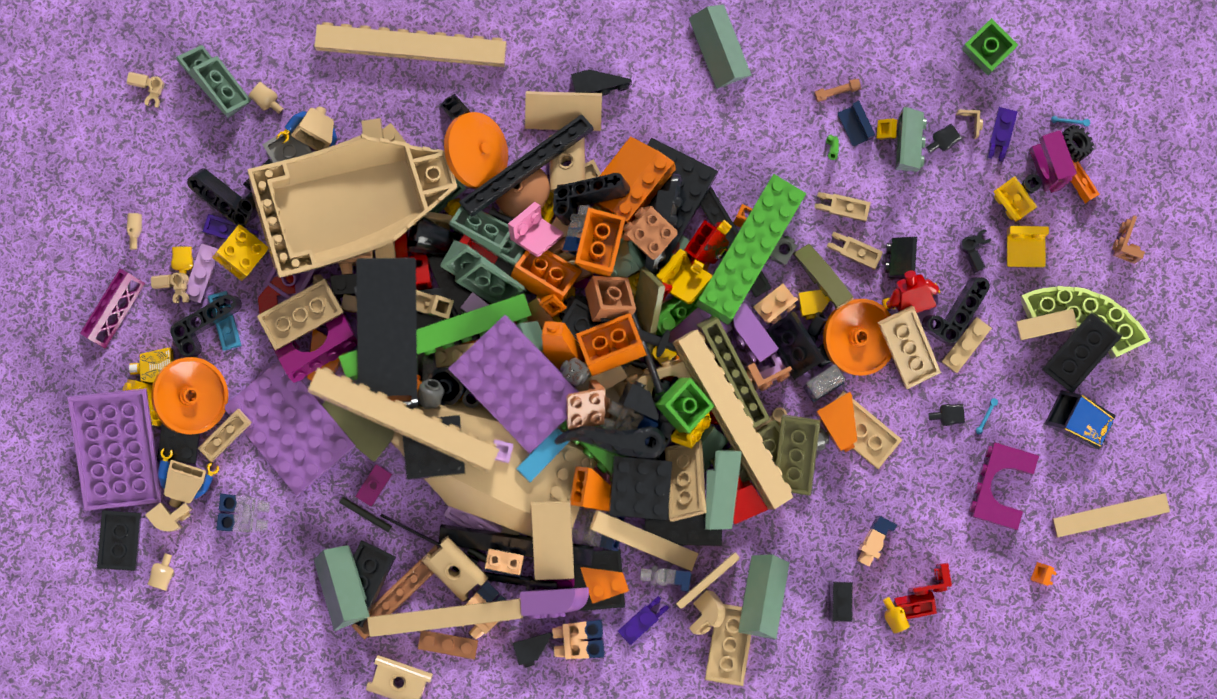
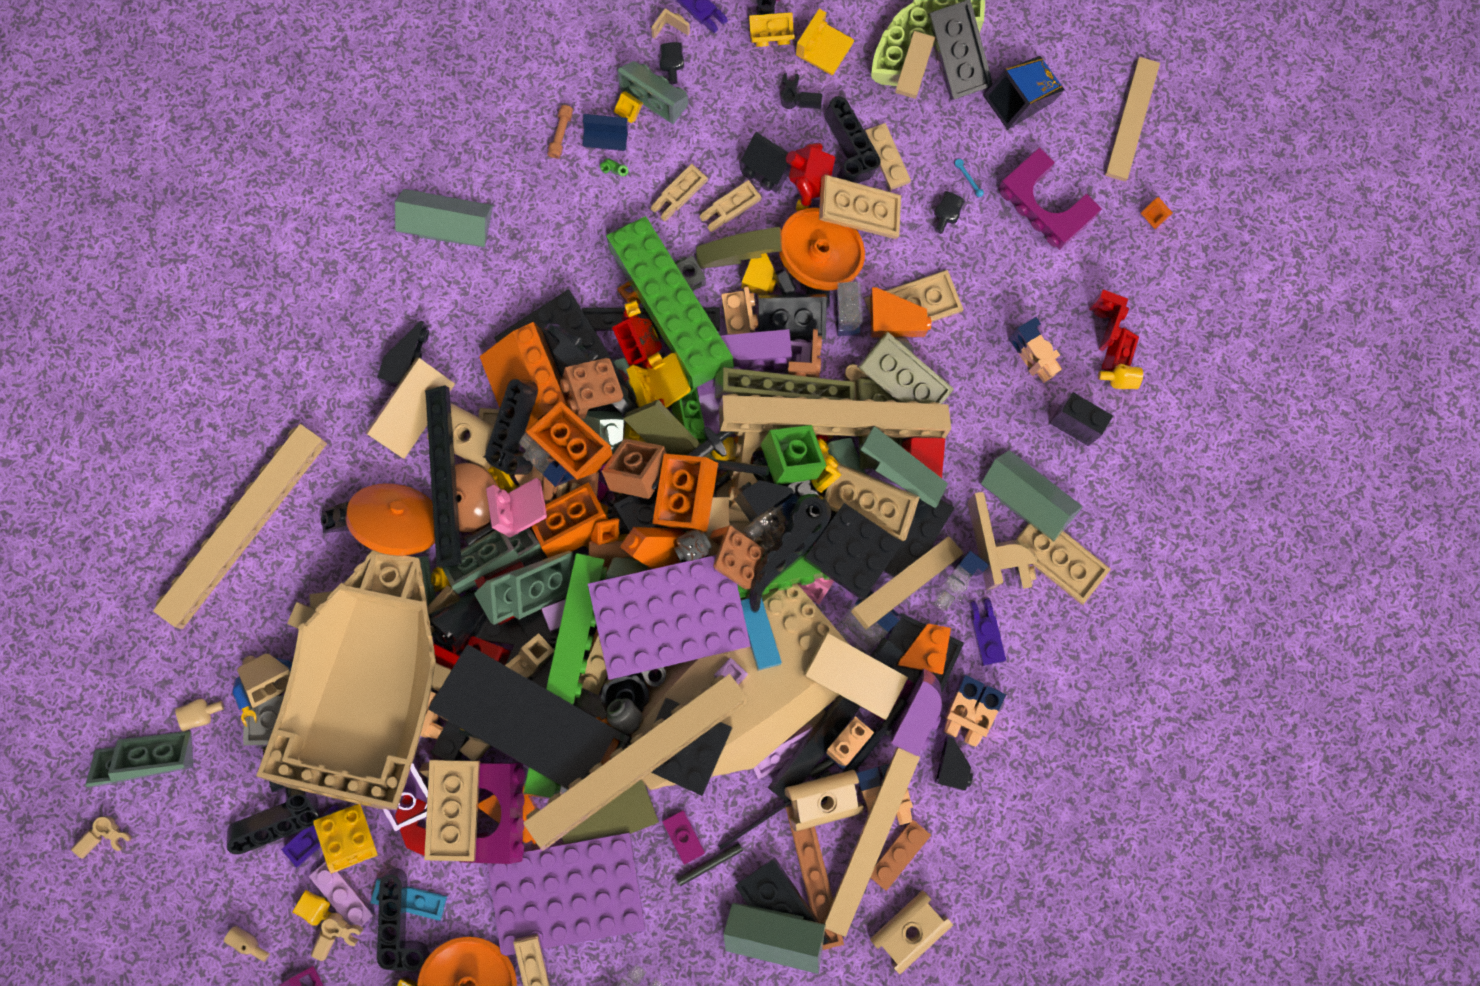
camera: 65 degrees left, 5 degrees down
(590, 490) = (825, 605): orange slope -> none

